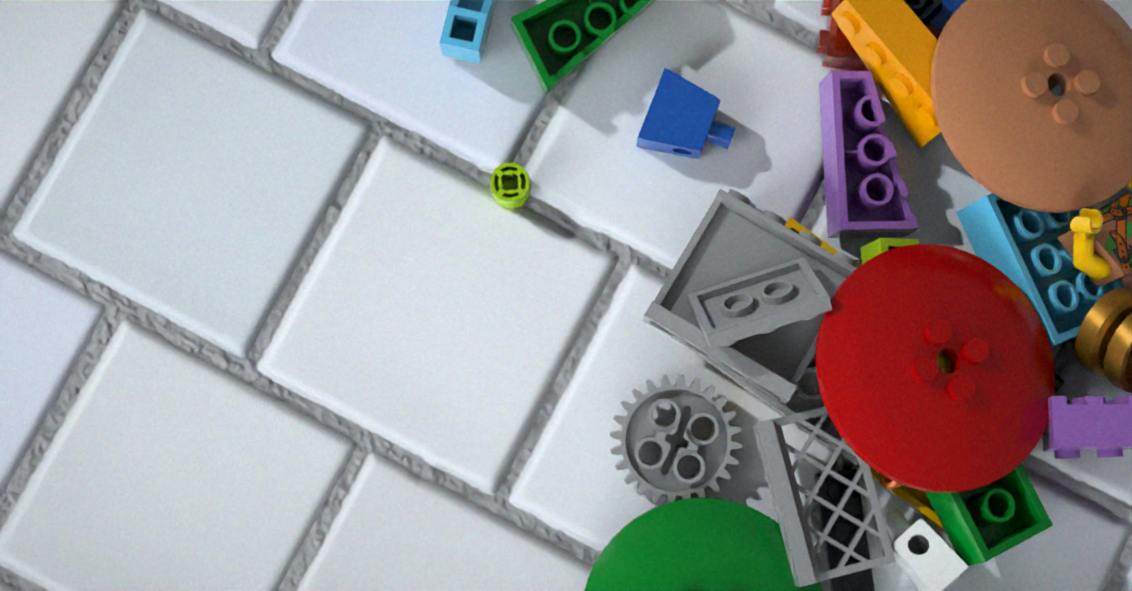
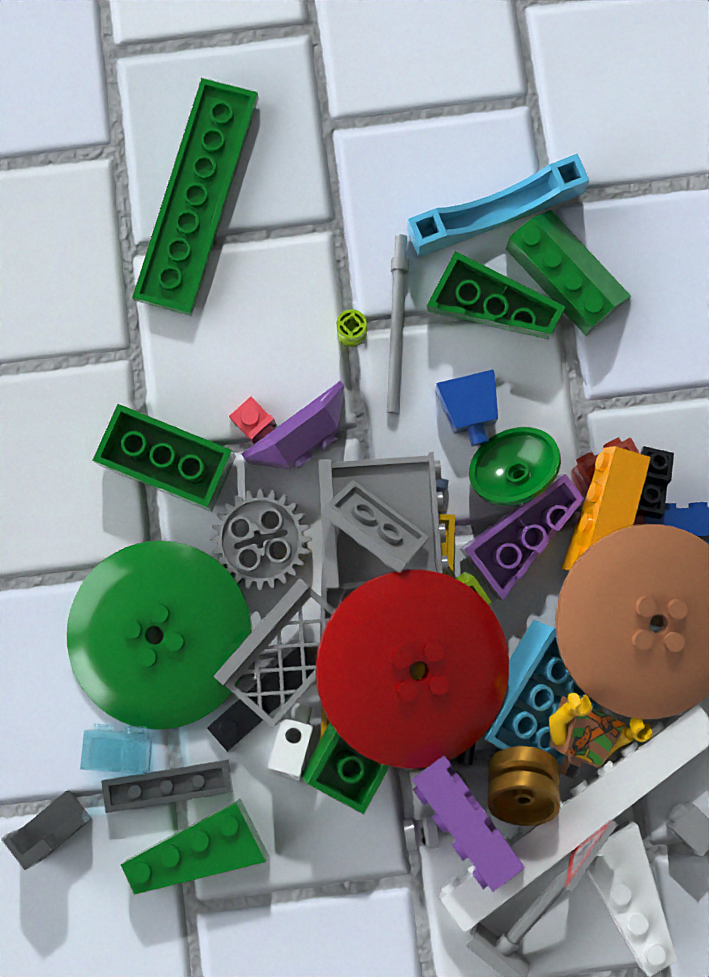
camera: 60 degrees right, 0 degrees up
(240, 253) = (195, 197): none -> green plate
(477, 90) = (399, 267): none -> light grey bar
(515, 483) = (164, 457): none -> green brick
(537, 361) = (253, 420): none -> coral bracket
(590, 317) = (301, 434): none -> medium lavender wedge
(767, 116) = (515, 466): none -> green dish
(1102, 483) = (413, 833): none -> light grey wheel

